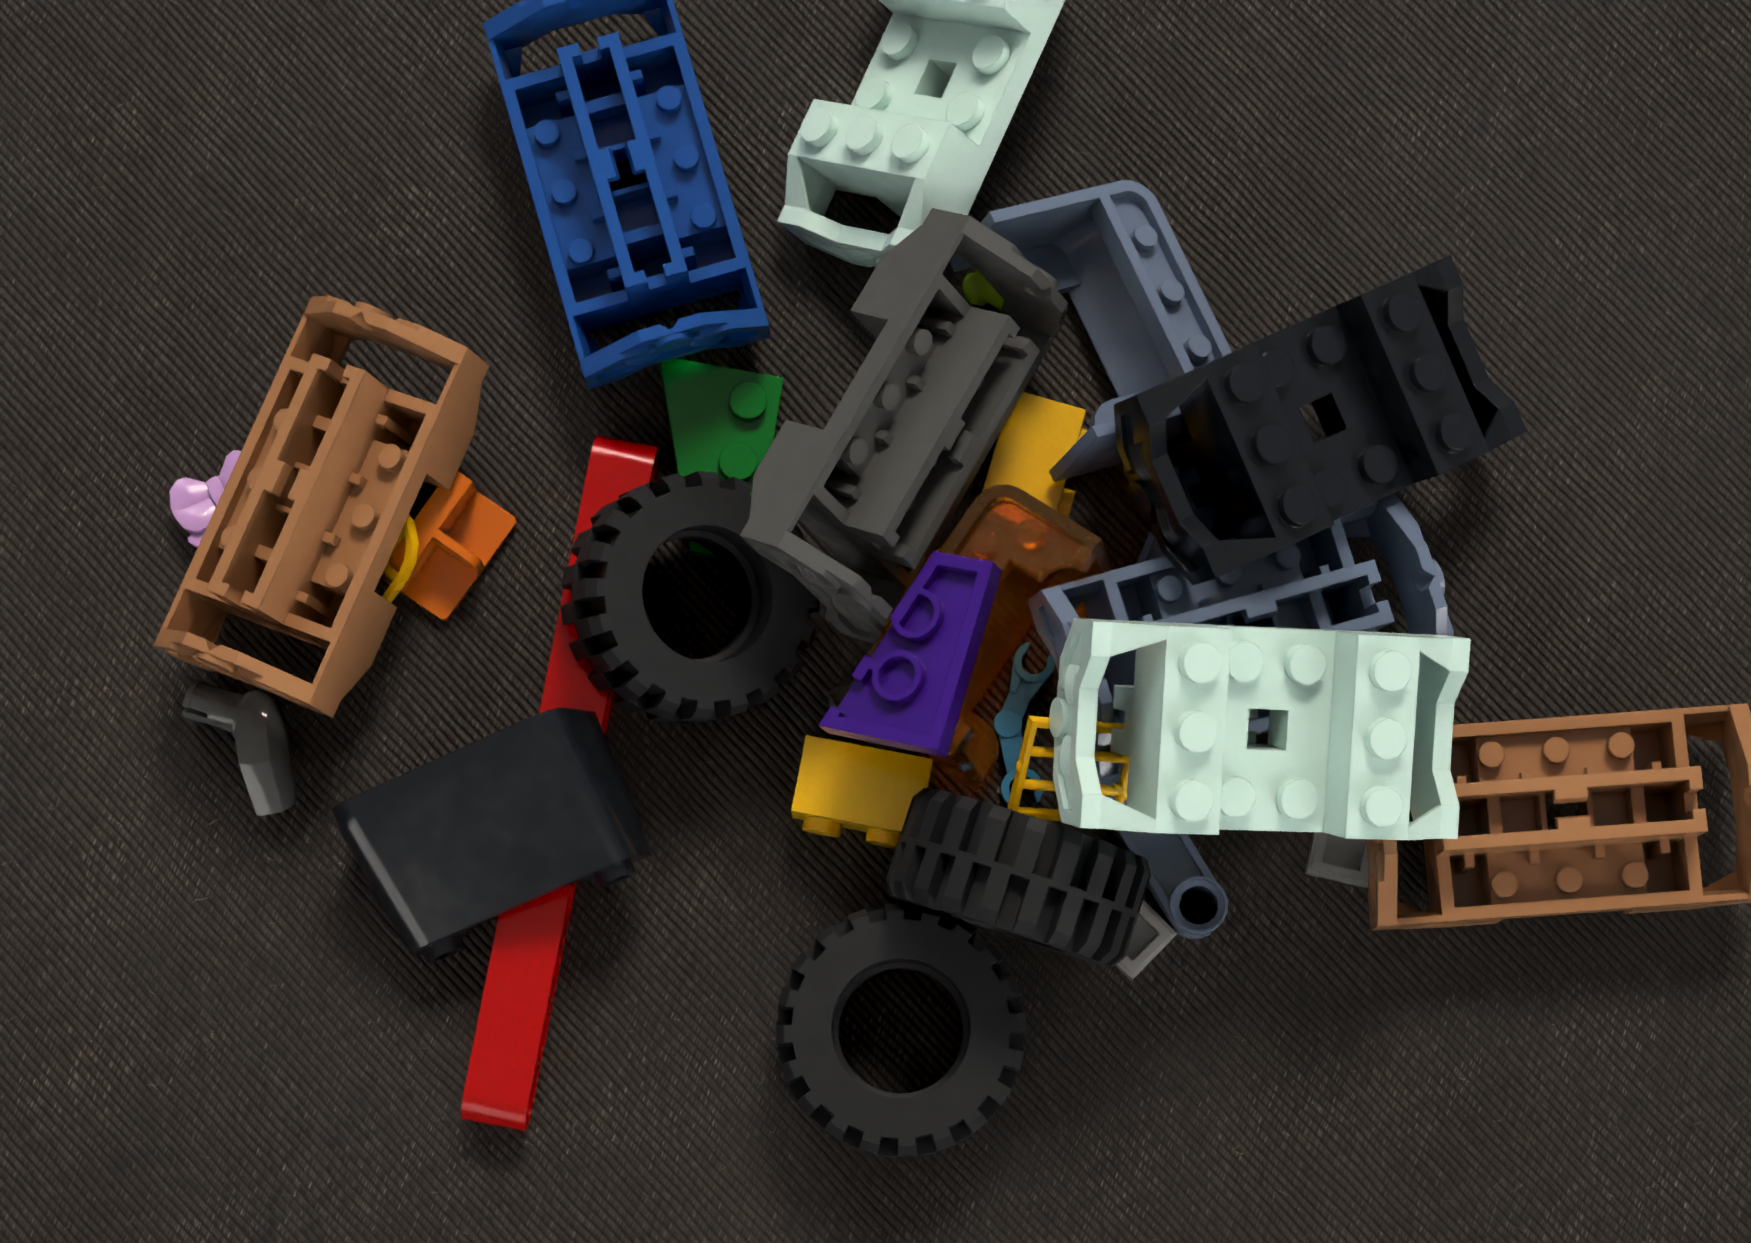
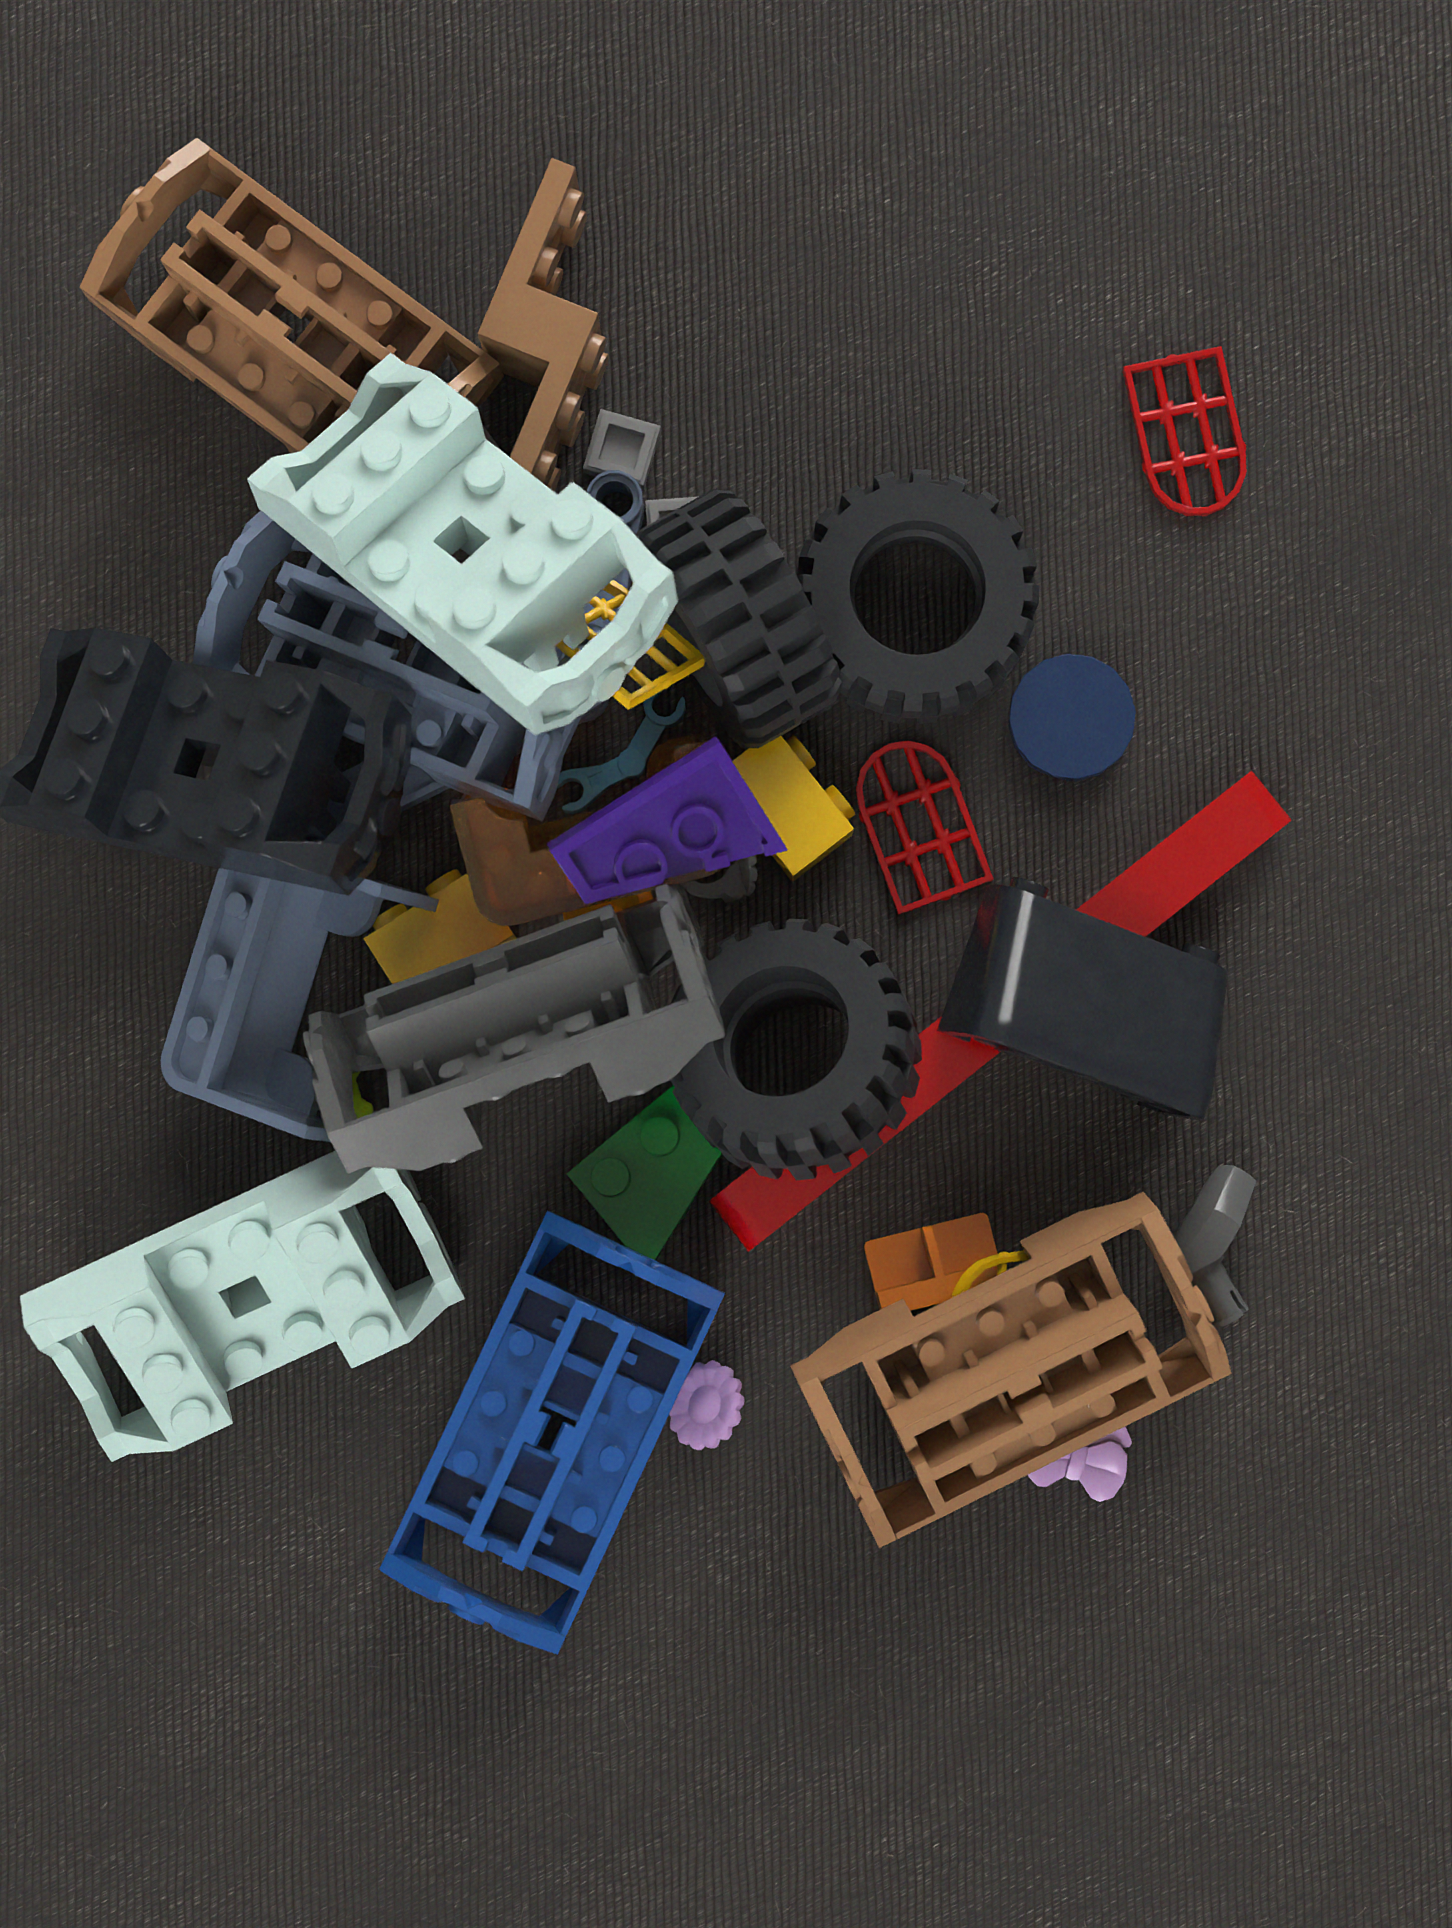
camera: 135 degrees left, 5 degrees up
(530, 299) = (707, 1406): none -> lavender piece
(701, 1053) = (1071, 717): none -> dark blue tile
(737, 845) = (911, 849): none -> red window
(1231, 960) = (622, 445): none -> light grey tile
(1363, 980) = (543, 335): none -> medium nougat bracket

